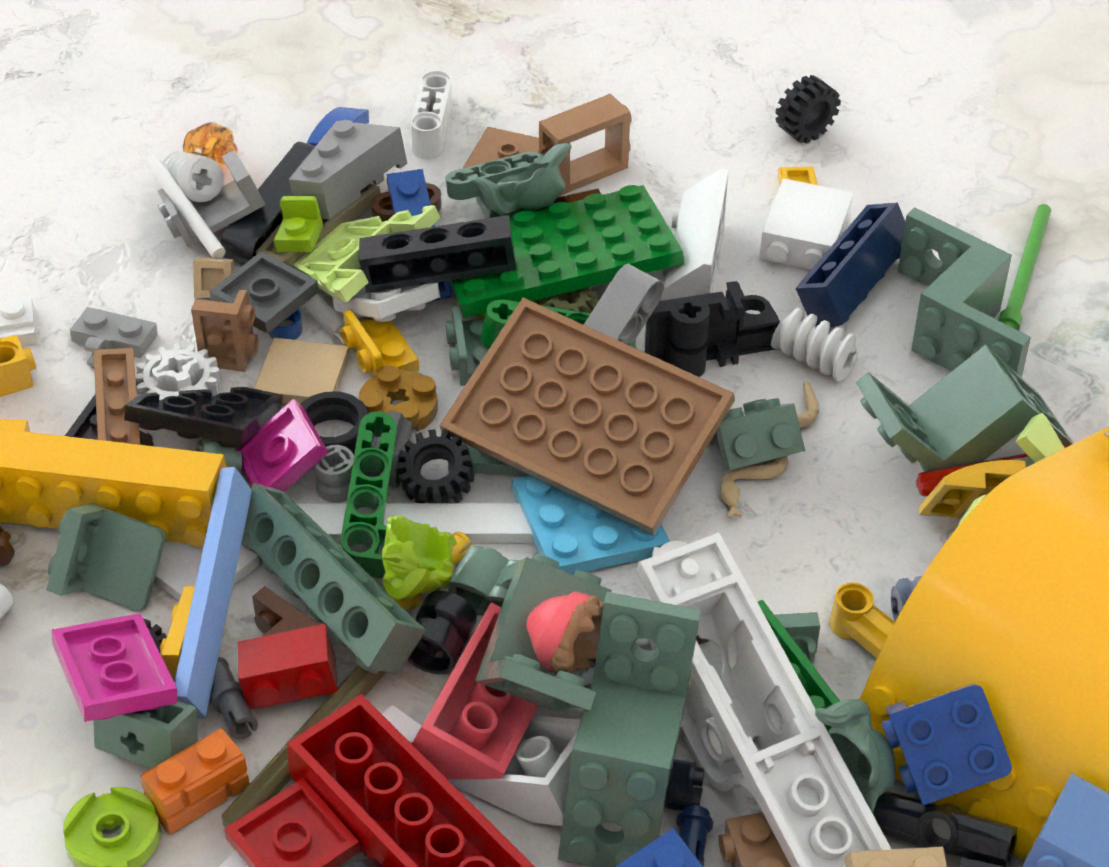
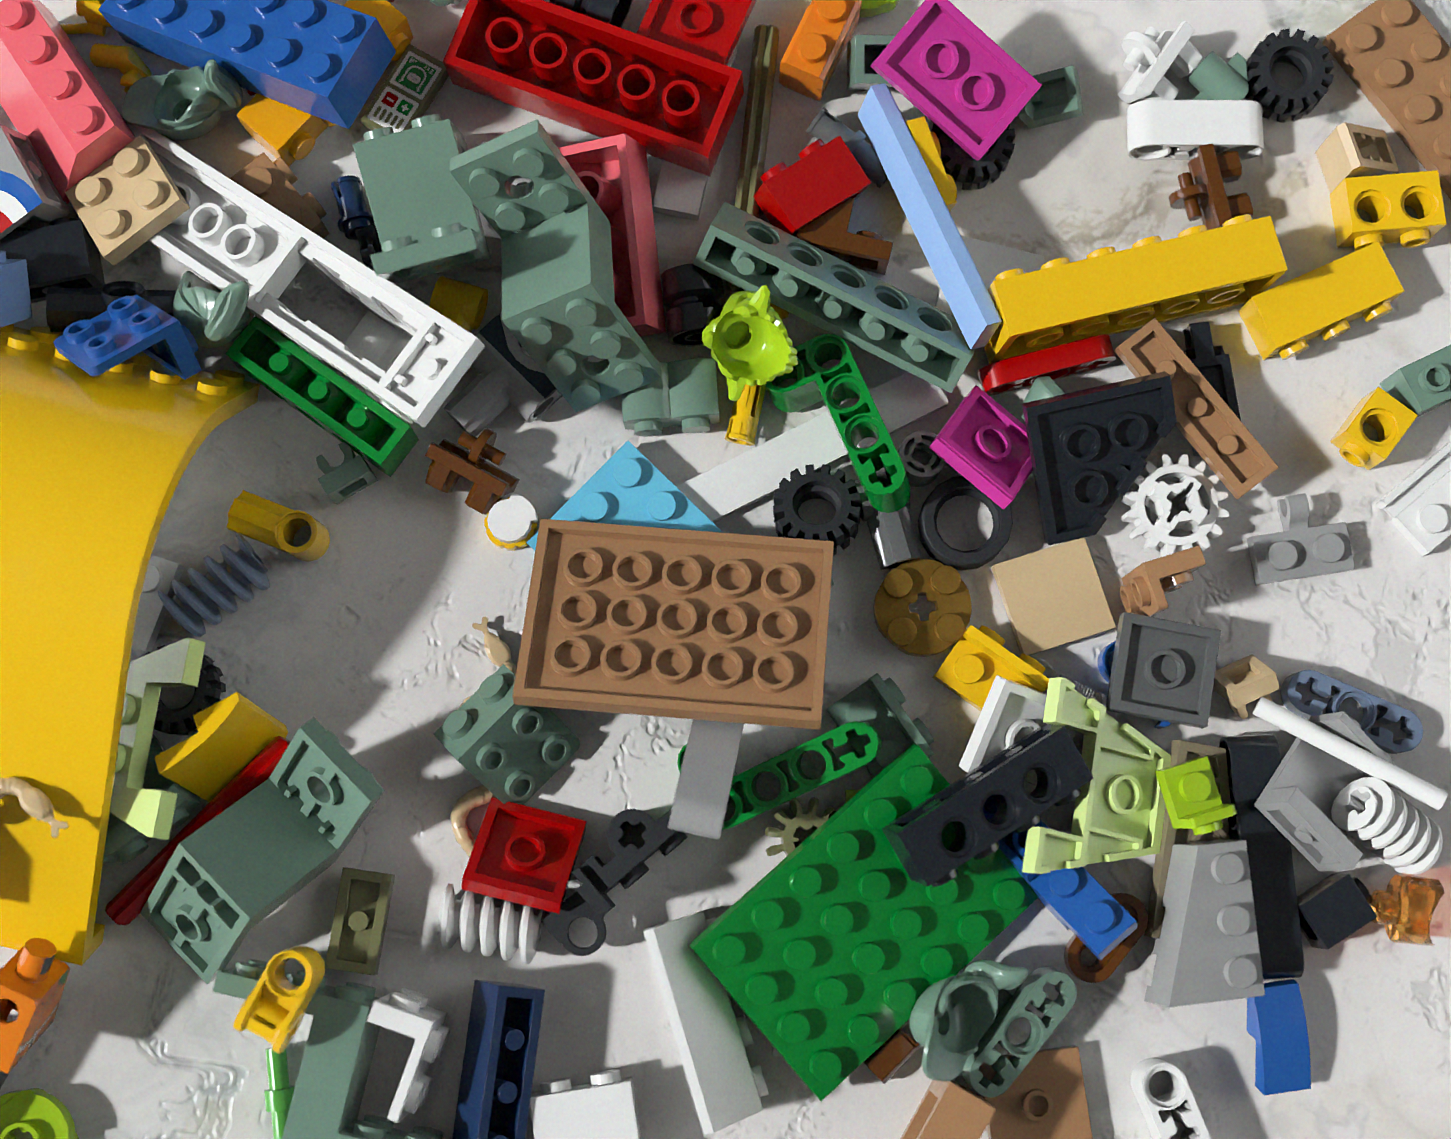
camera: 150 degrees right, 35 degrees up
(36, 664) = (1055, 100): none -> sand green bracket
(106, 556) = (1074, 231): sand green bracket -> none
(159, 260) = (1389, 712): none -> sand blue beam
(258, 157) = (1334, 910): none -> black brick
(566, 631) = (516, 233): hair -> none
(772, 361) = (524, 855): none -> red plate
(899, 295) = (411, 1016): none -> white bracket
(915, 375) = (360, 921): none -> olive plate
(979, 305) = (275, 1004): none -> yellow piece

